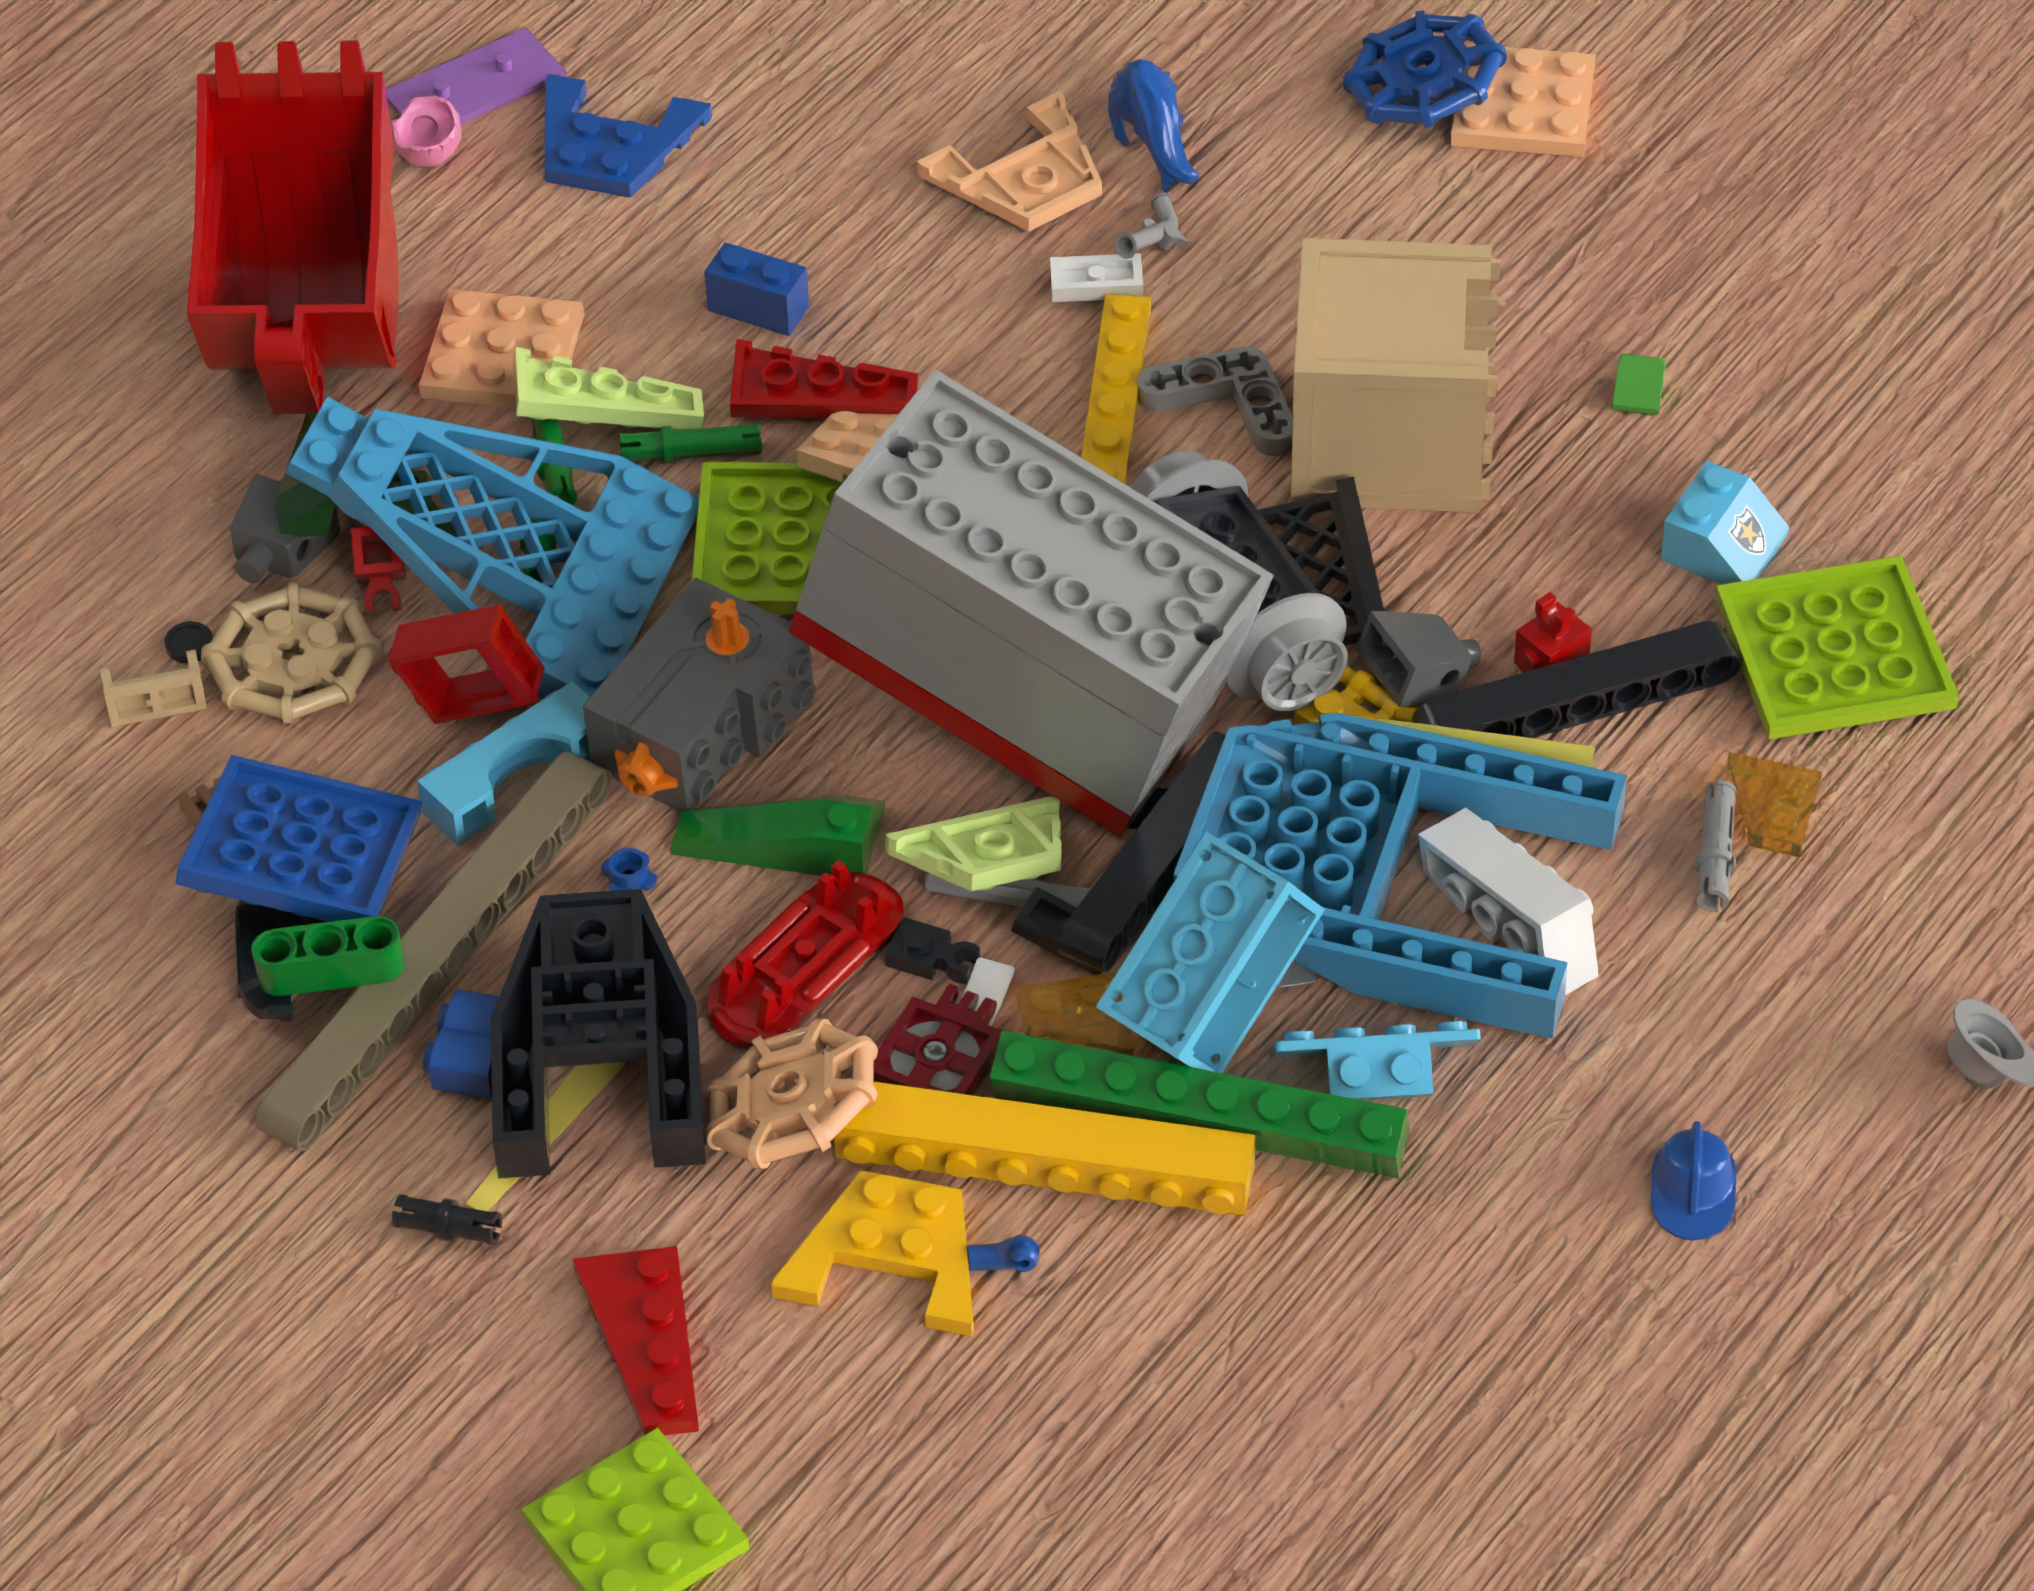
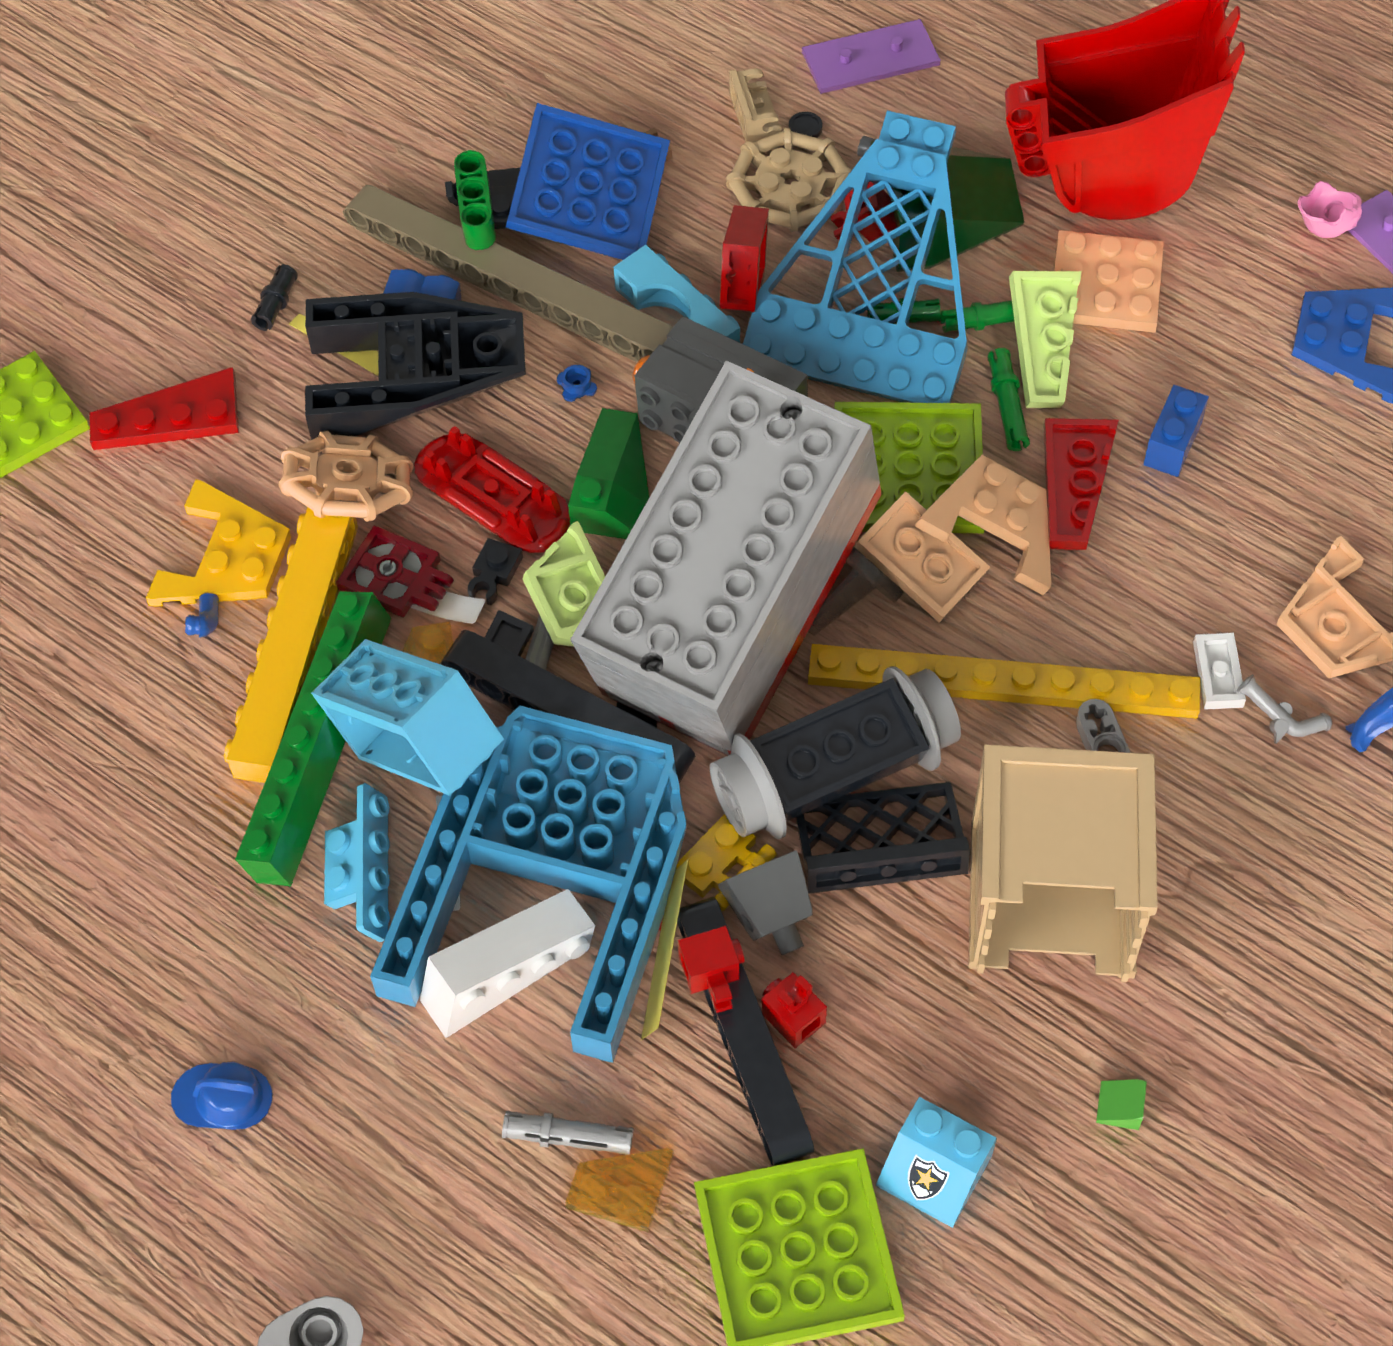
camera: 90 degrees right, 10 degrees up
(66, 573) = (870, 56): none -> medium lavender piece
(1520, 690) = (710, 963): none -> red brick

